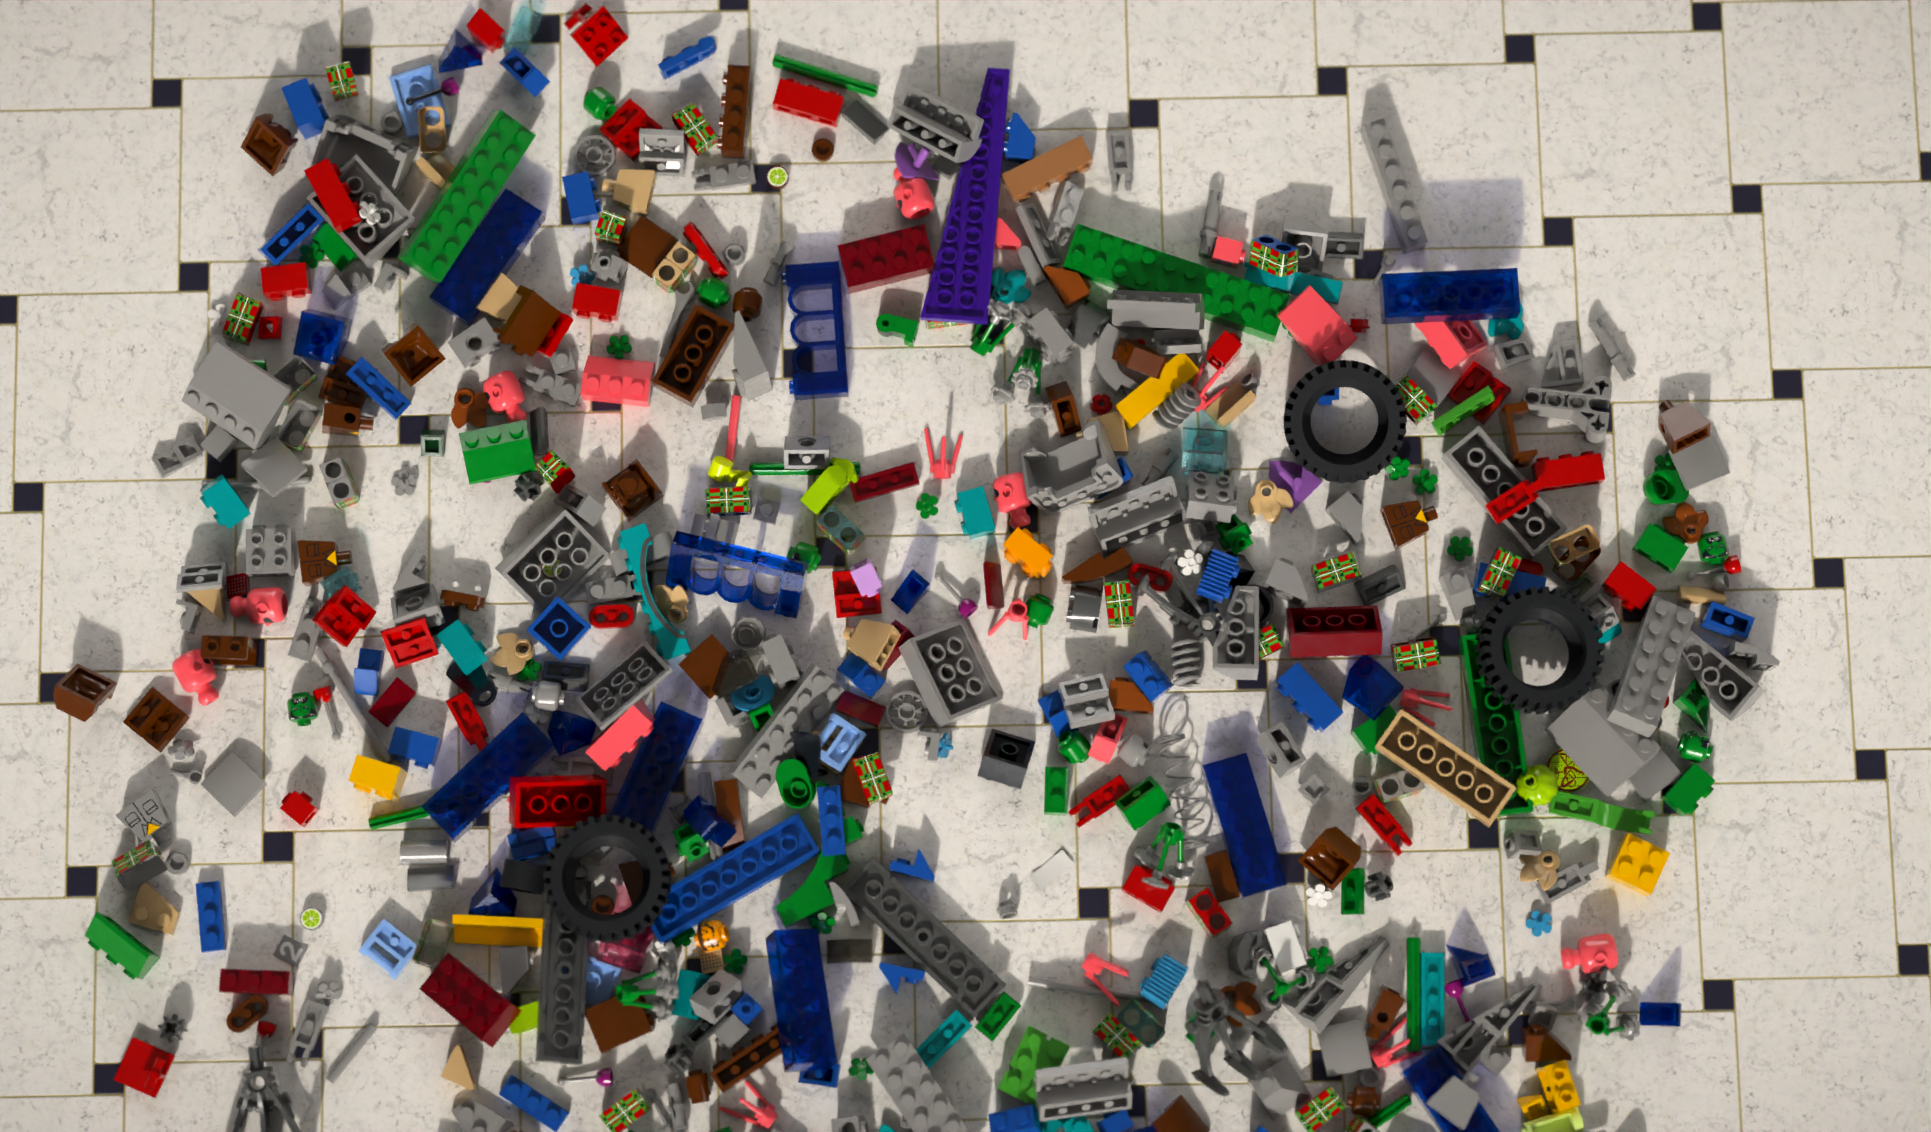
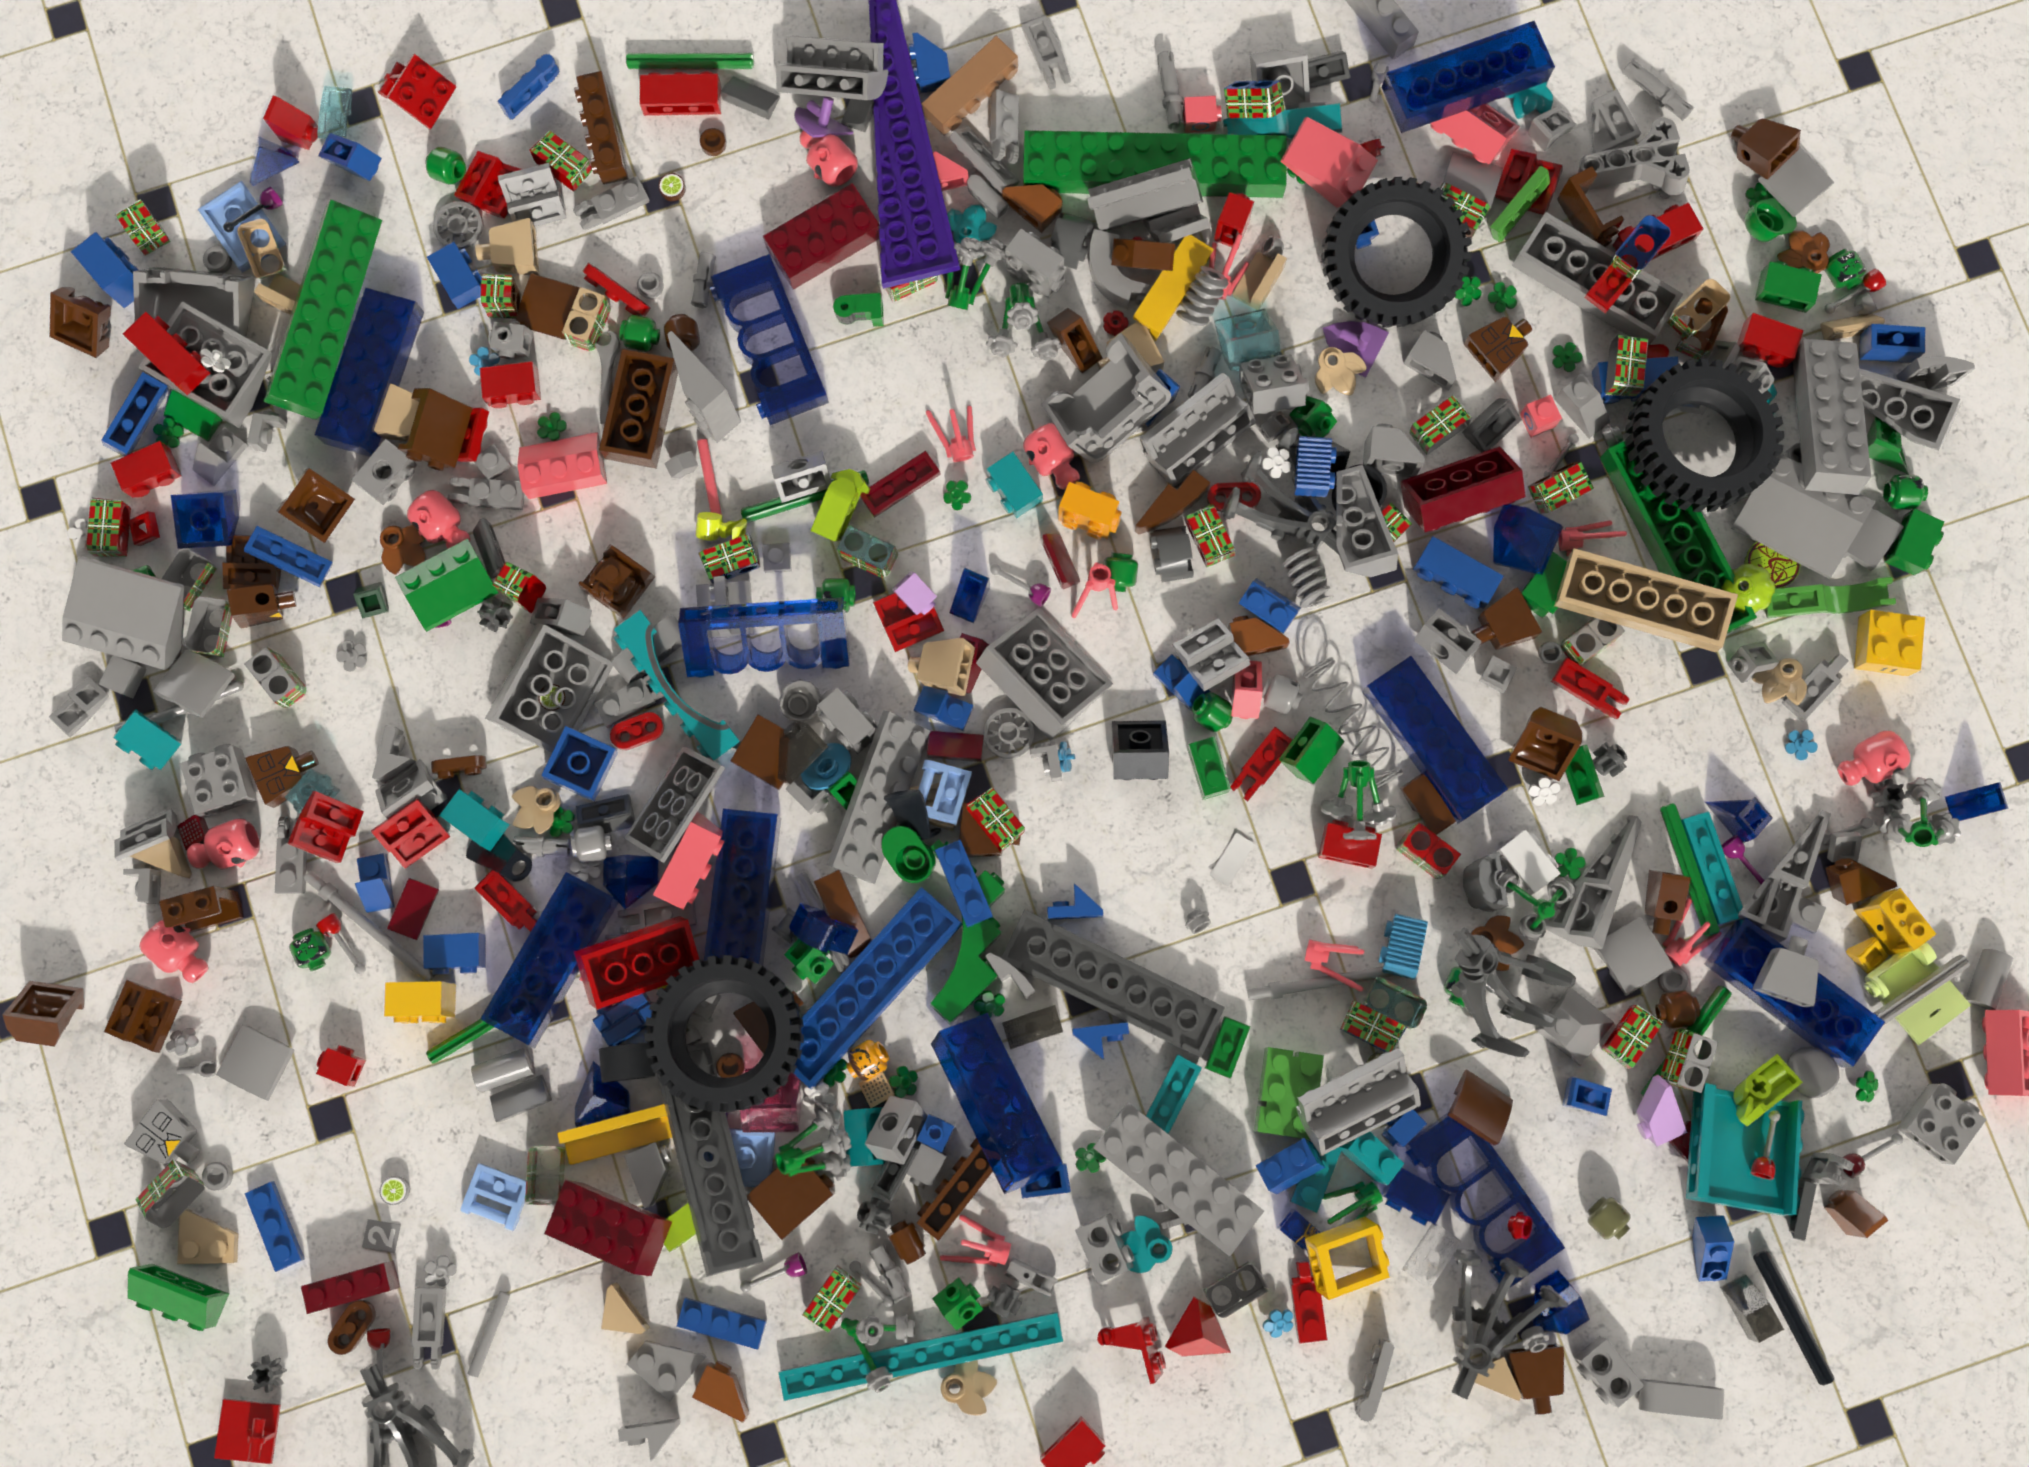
camera: 15 degrees left, 0 degrees up
(671, 600) = (700, 690): tan plate -> none
(1334, 750) = (1507, 622): none -> reddish brown torso
(1419, 590) = (1540, 416): none -> coral brick
(1552, 467) = (1650, 226): none -> blue piece

